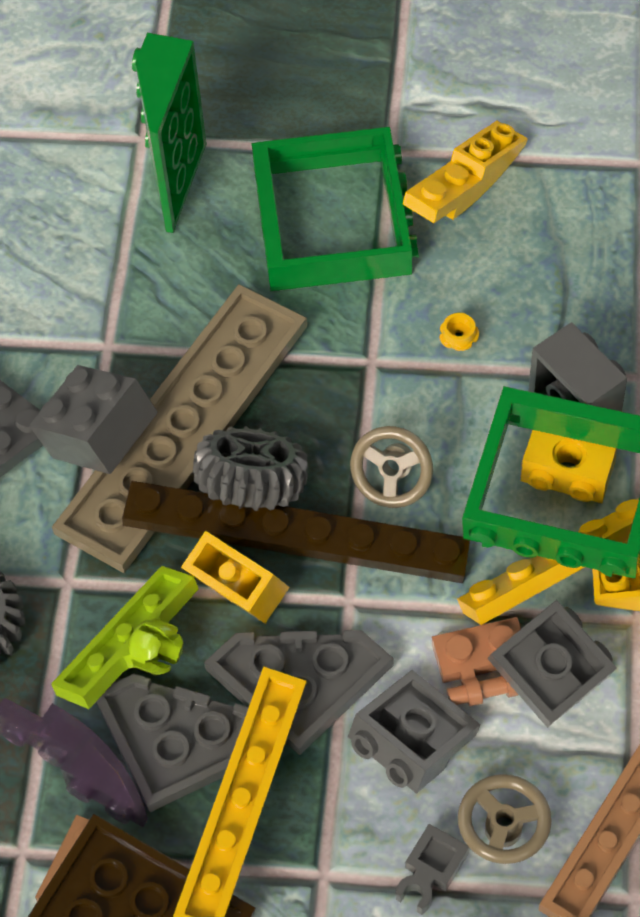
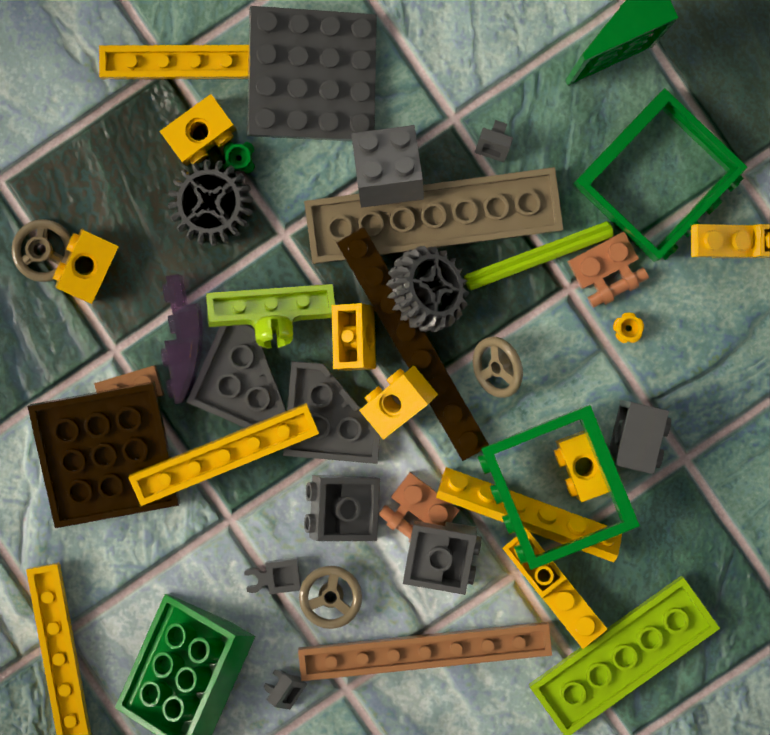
camera: 45 degrees right, 30 degrees up
(165, 320) = (494, 142): none -> dark grey tile
(314, 358) = (539, 255): none -> lime axle
(353, 607) = (385, 413): none -> yellow brick
(370, 312) = (604, 260): none -> nougat plate

